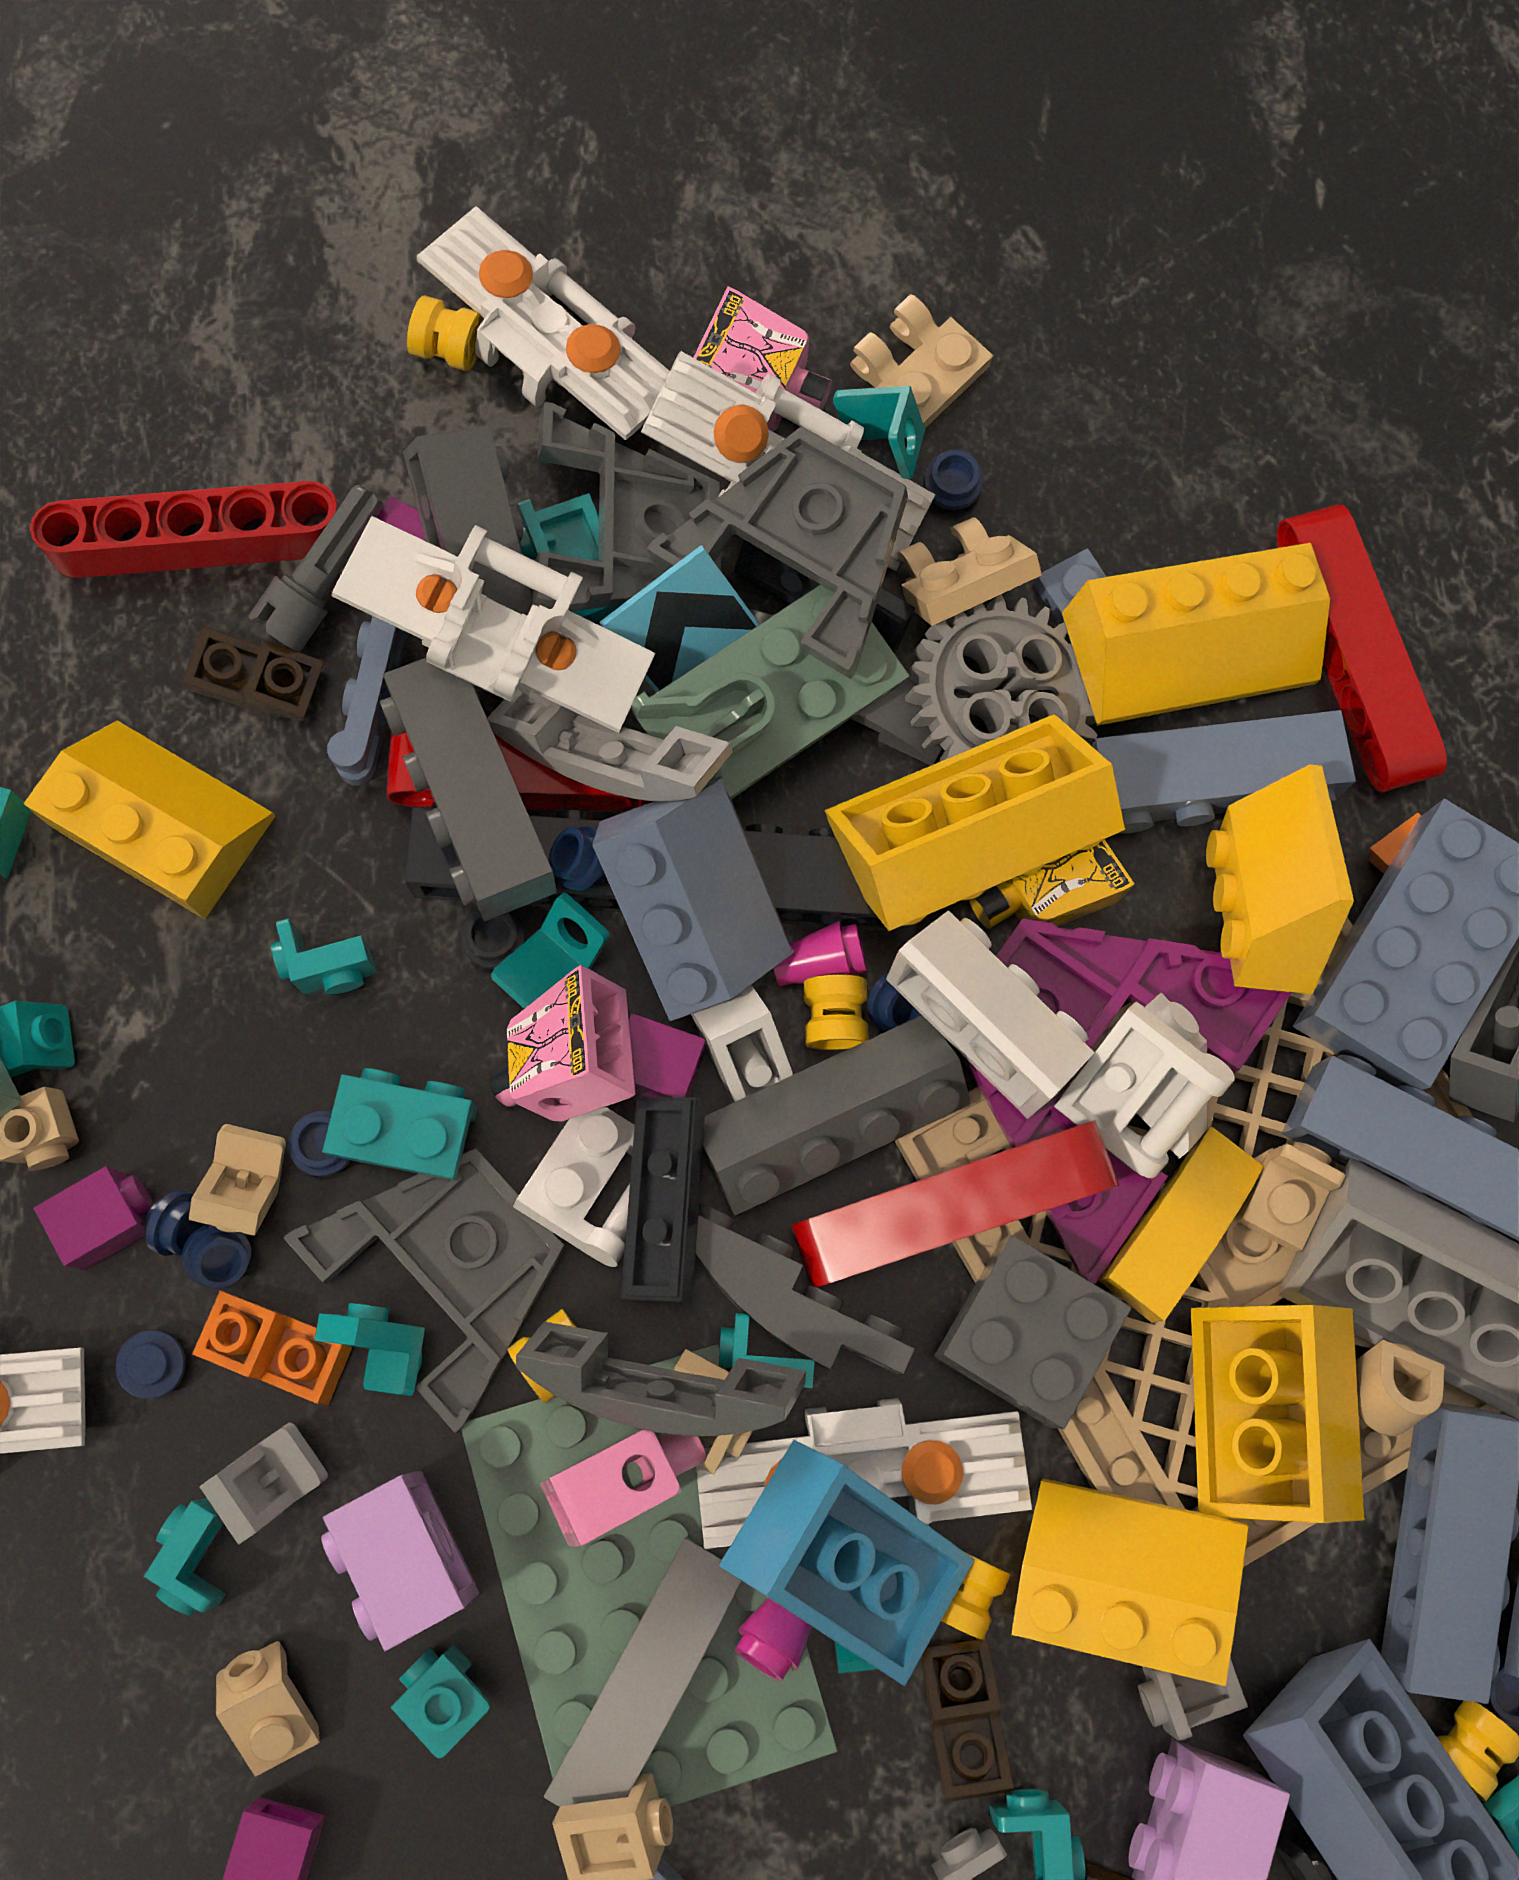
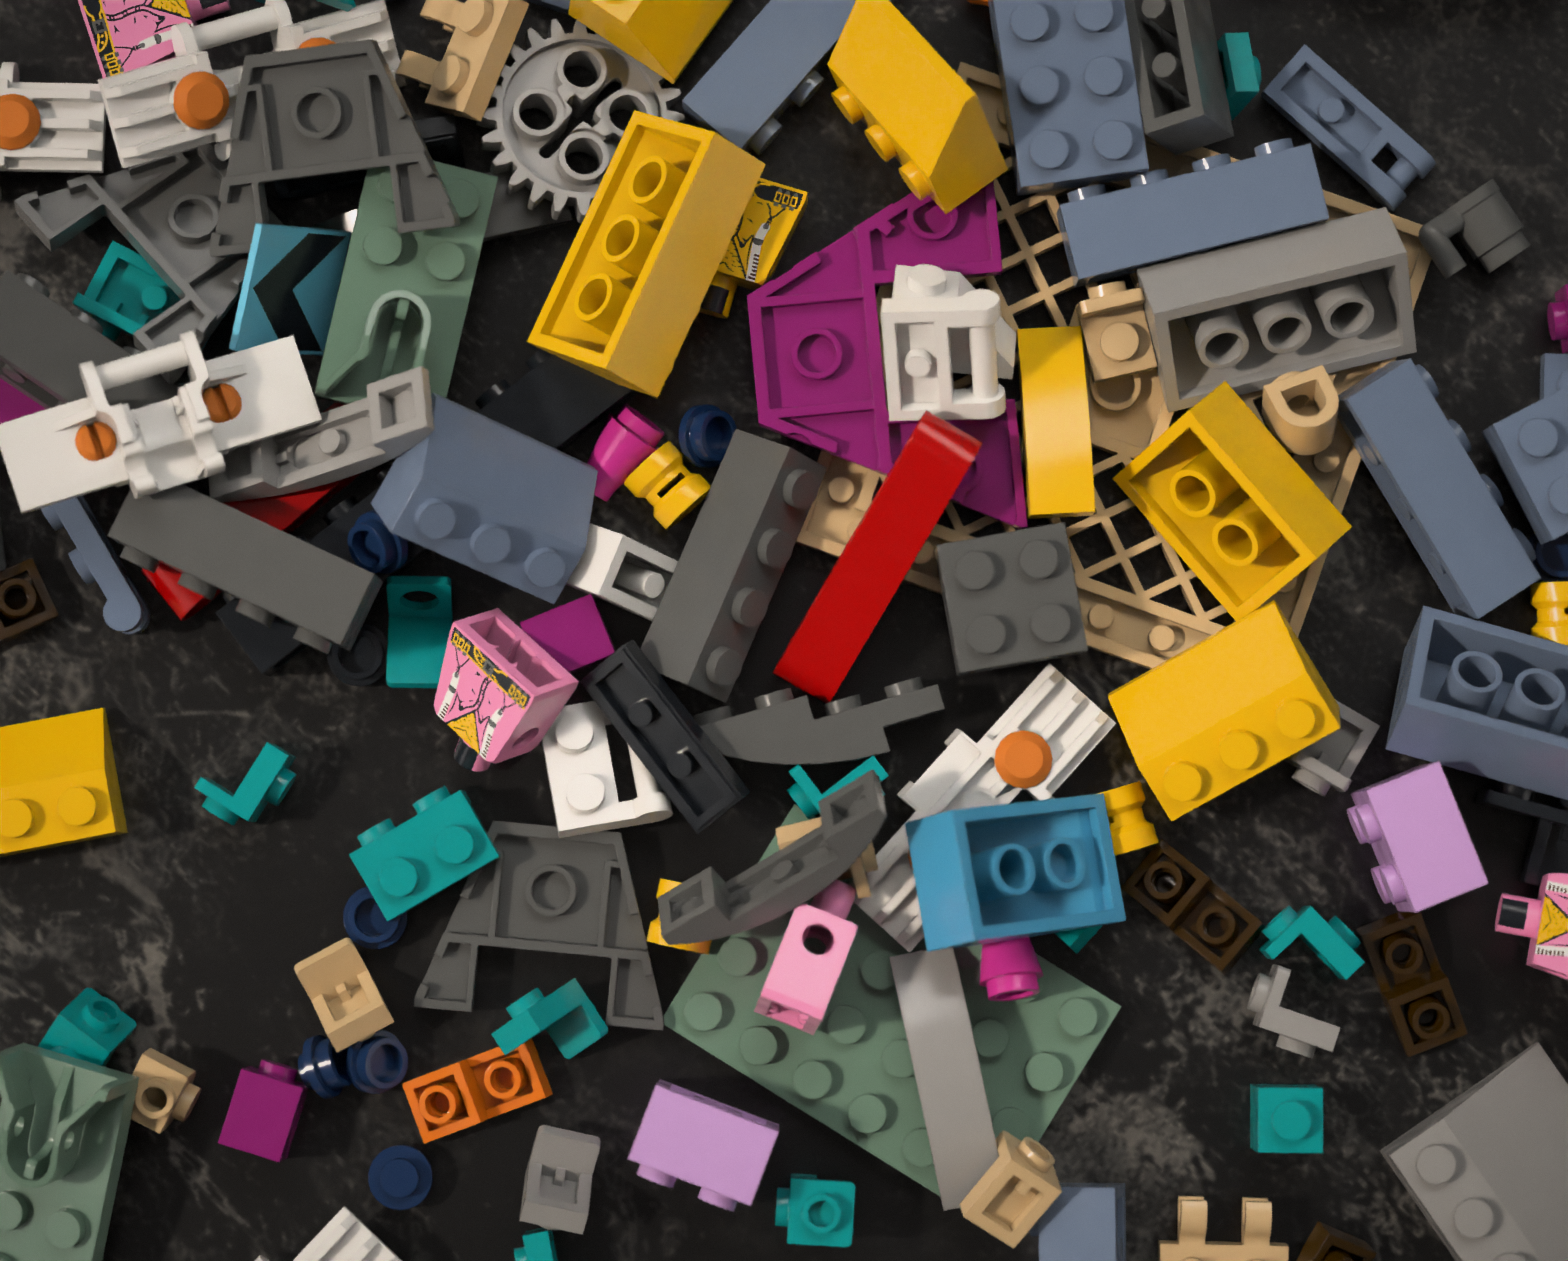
camera: 30 degrees left, 10 degrees up
(989, 1012) = (783, 393): white slope -> none

